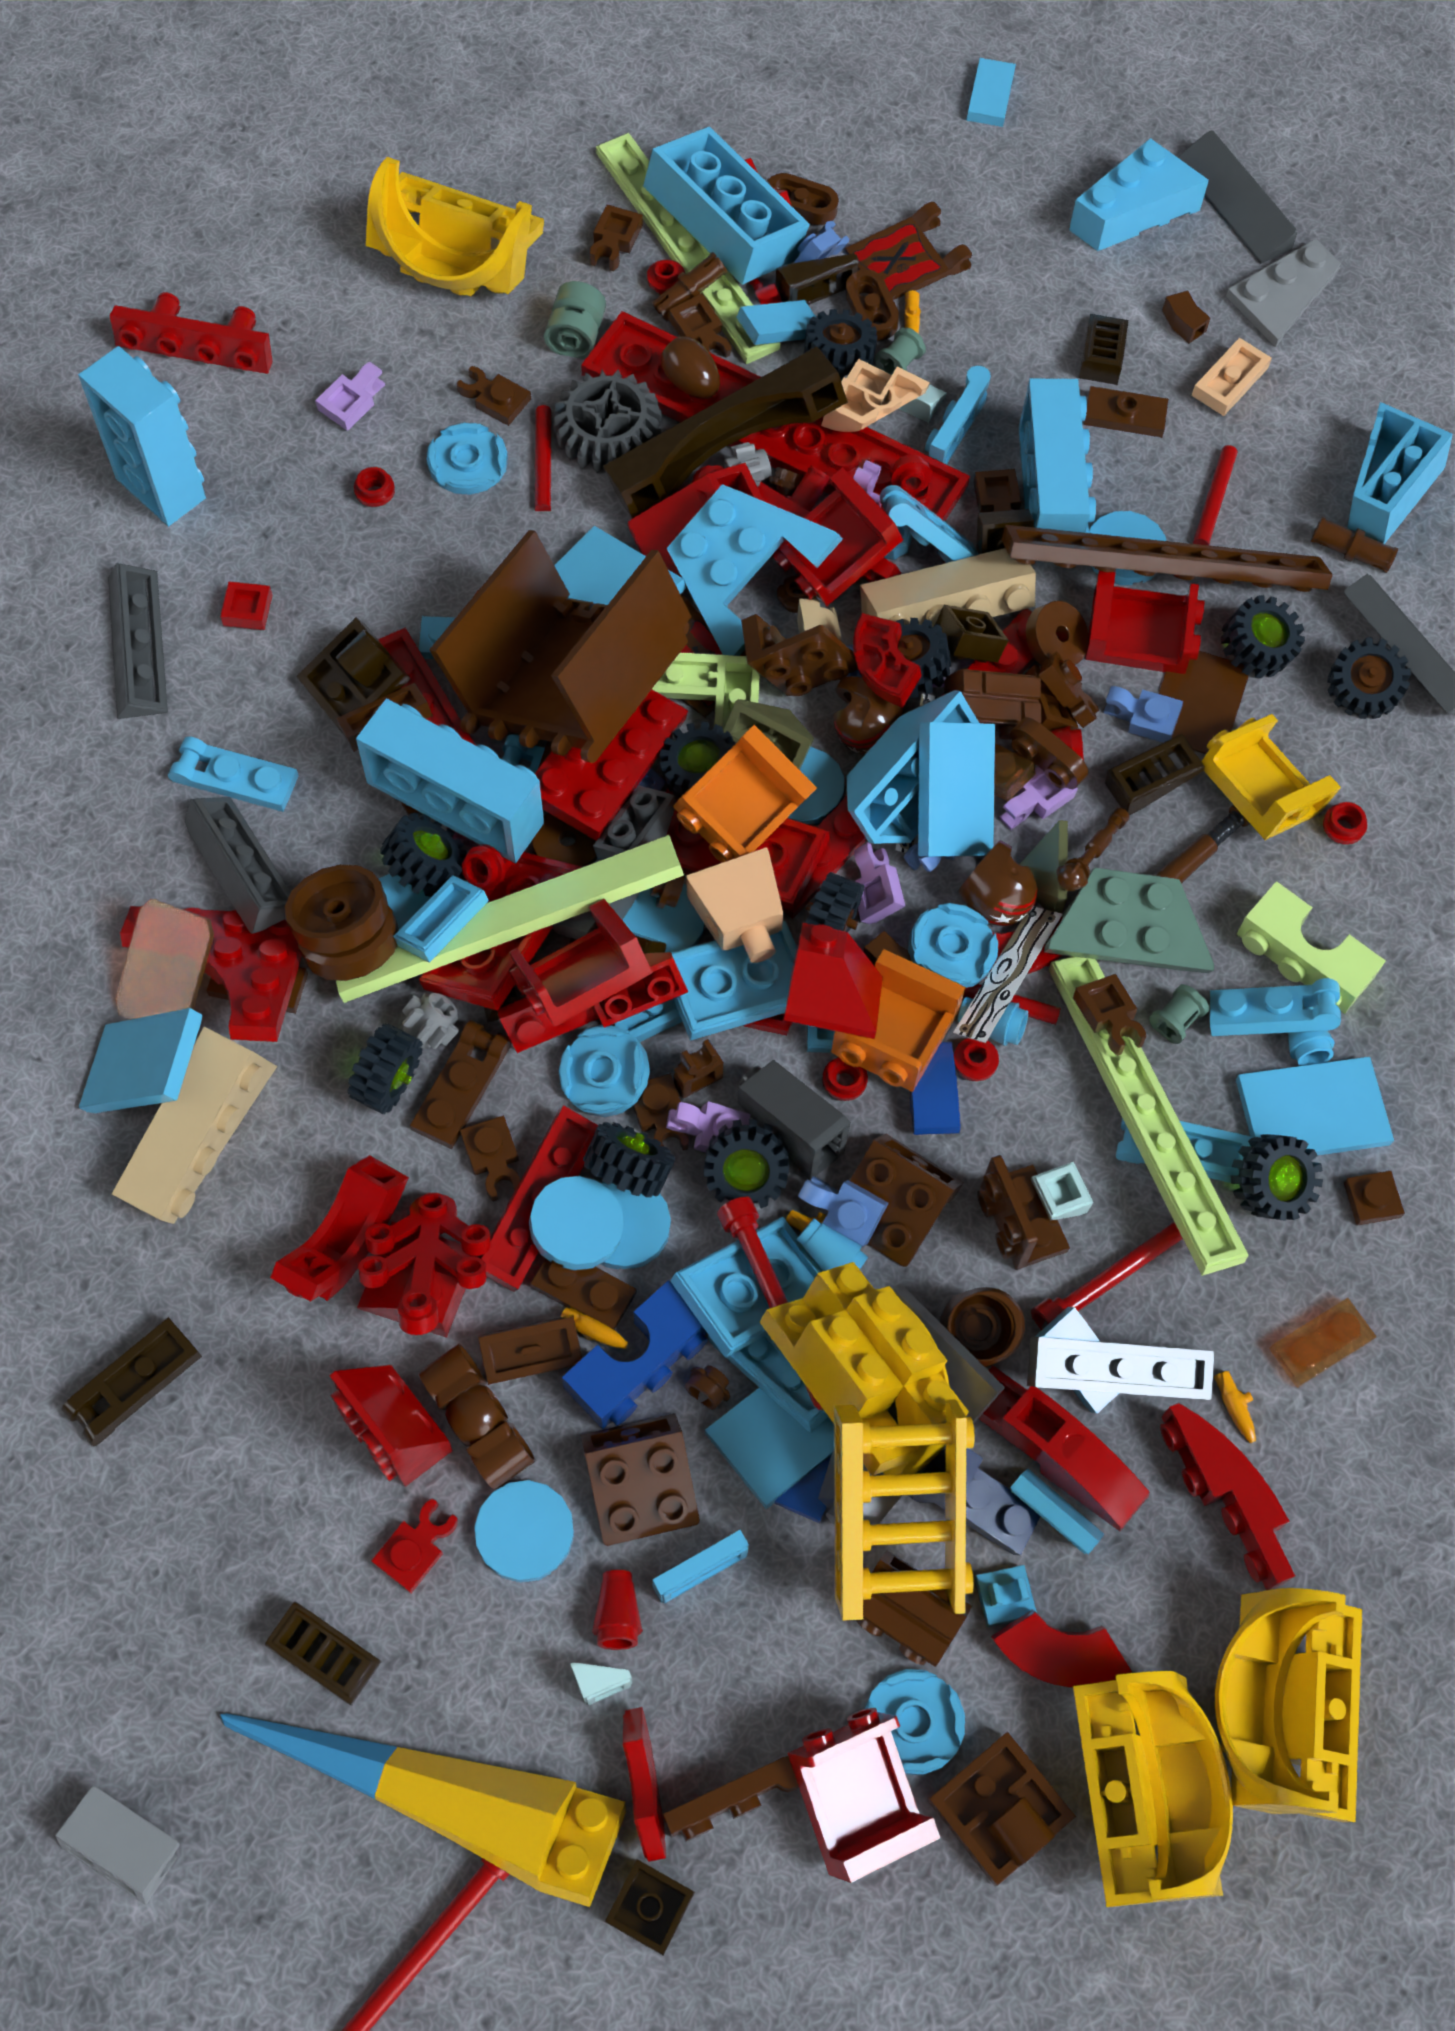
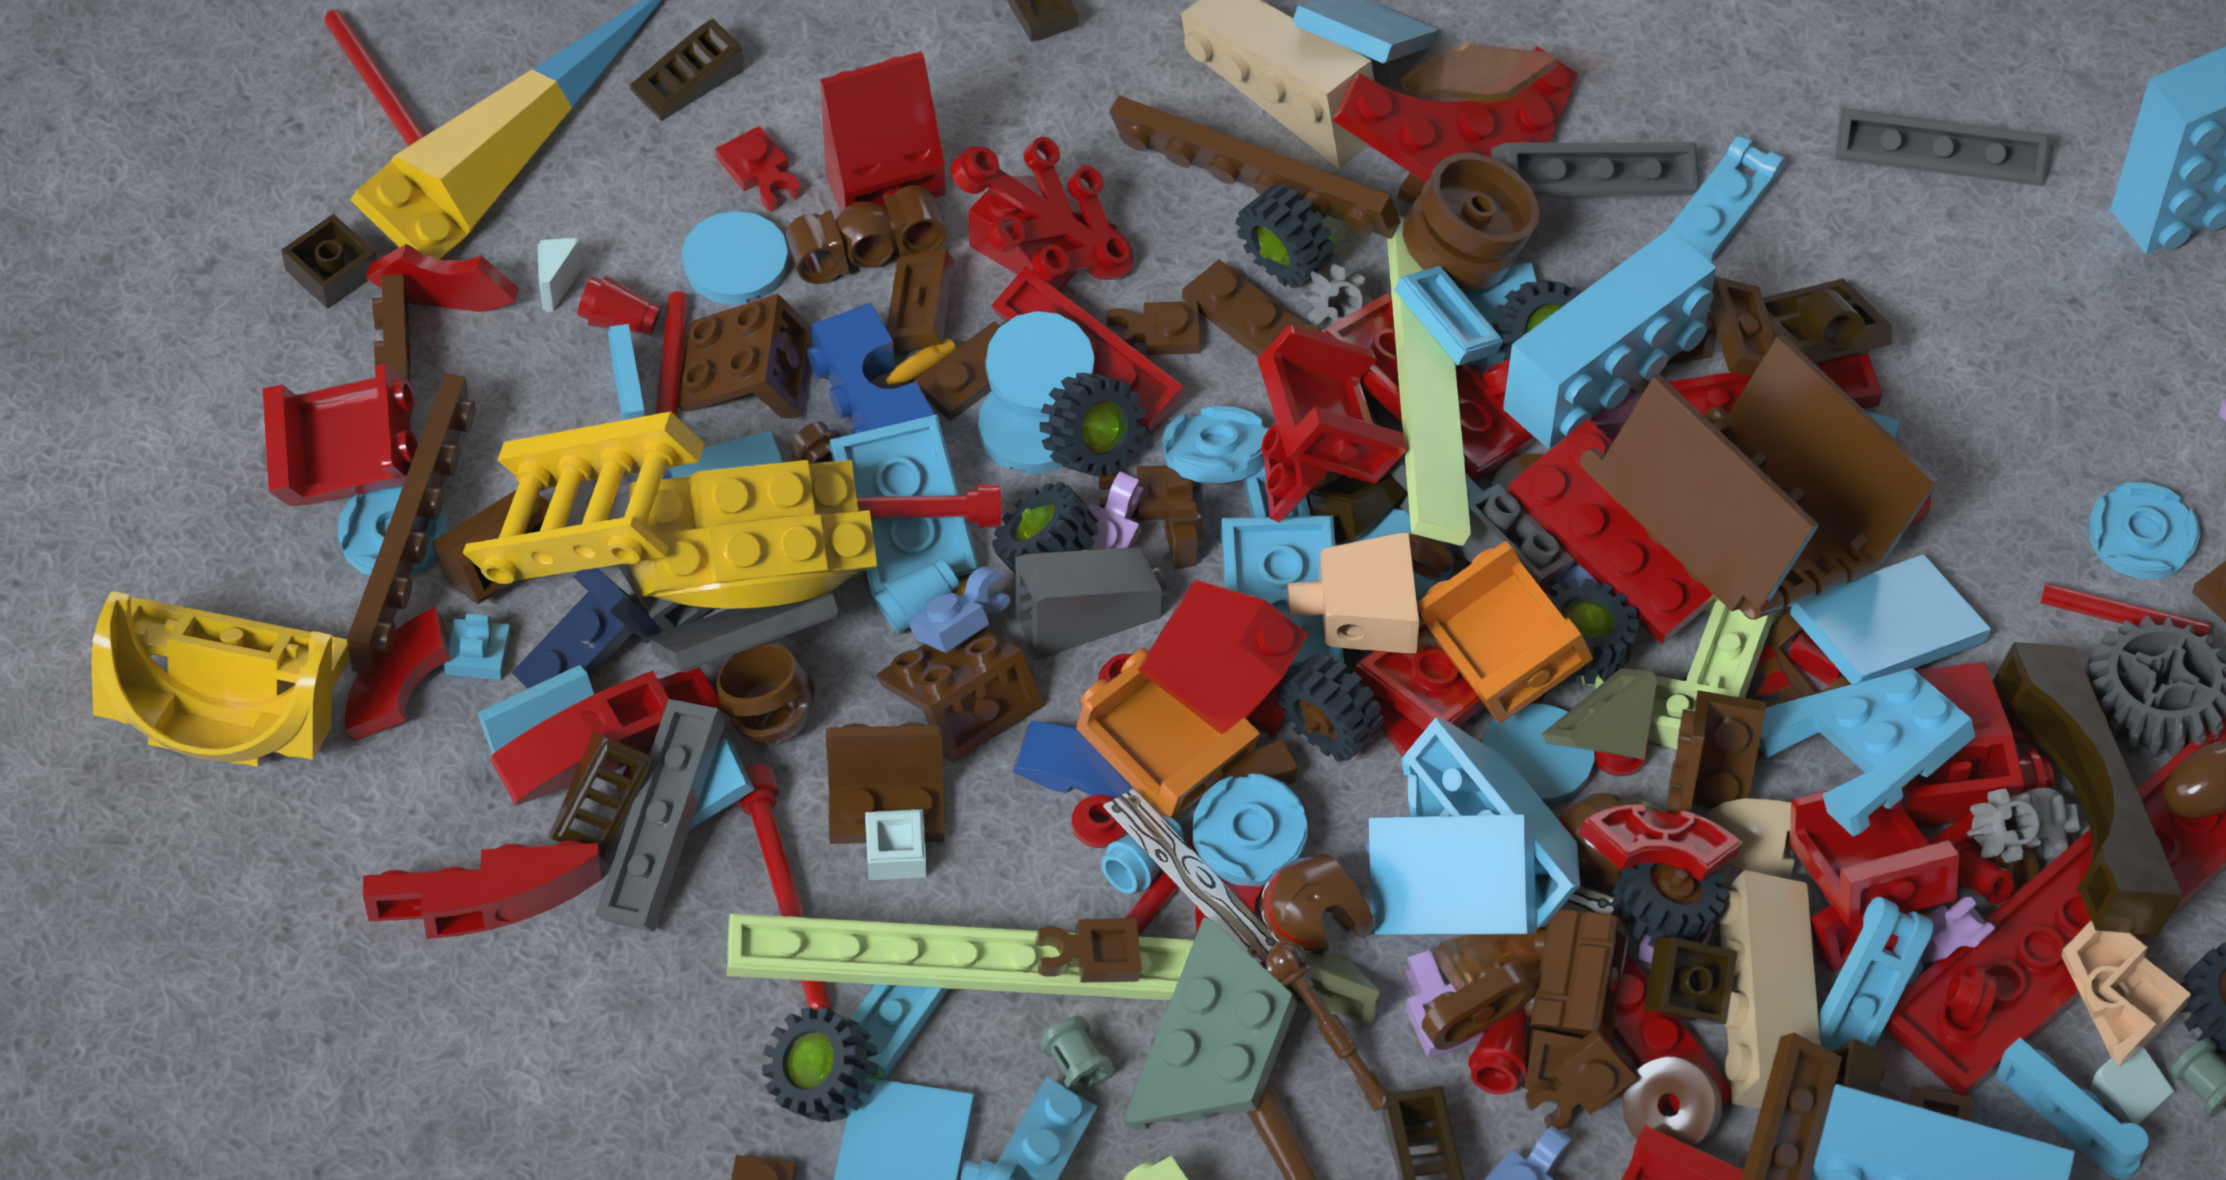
camera: 110 degrees right, 10 degrees down
(246, 605) = (1961, 252): red plate -> none
(318, 1131) = (1236, 160): none -> reddish brown plate
(338, 1245) = (1136, 191): red arch -> none
(374, 477) = (2119, 406): red plate -> none
(654, 1545) = (672, 353): none -> red bar
(781, 468) = (2020, 822): none -> light grey gear
(881, 885) = (1356, 784): lavender plate -> none
(946, 1687) = (406, 535): none -> reddish brown plate
(1001, 1809) = (275, 569): reddish brown plate -> none
(1117, 1421) = (590, 767): none -> dark brown slope
(1236, 1405) = (580, 946): light orange helmet -> none
(1292, 1706) = (231, 831): yellow piece -> none
(1322, 1342) = (611, 1061): clear orange plate -> none

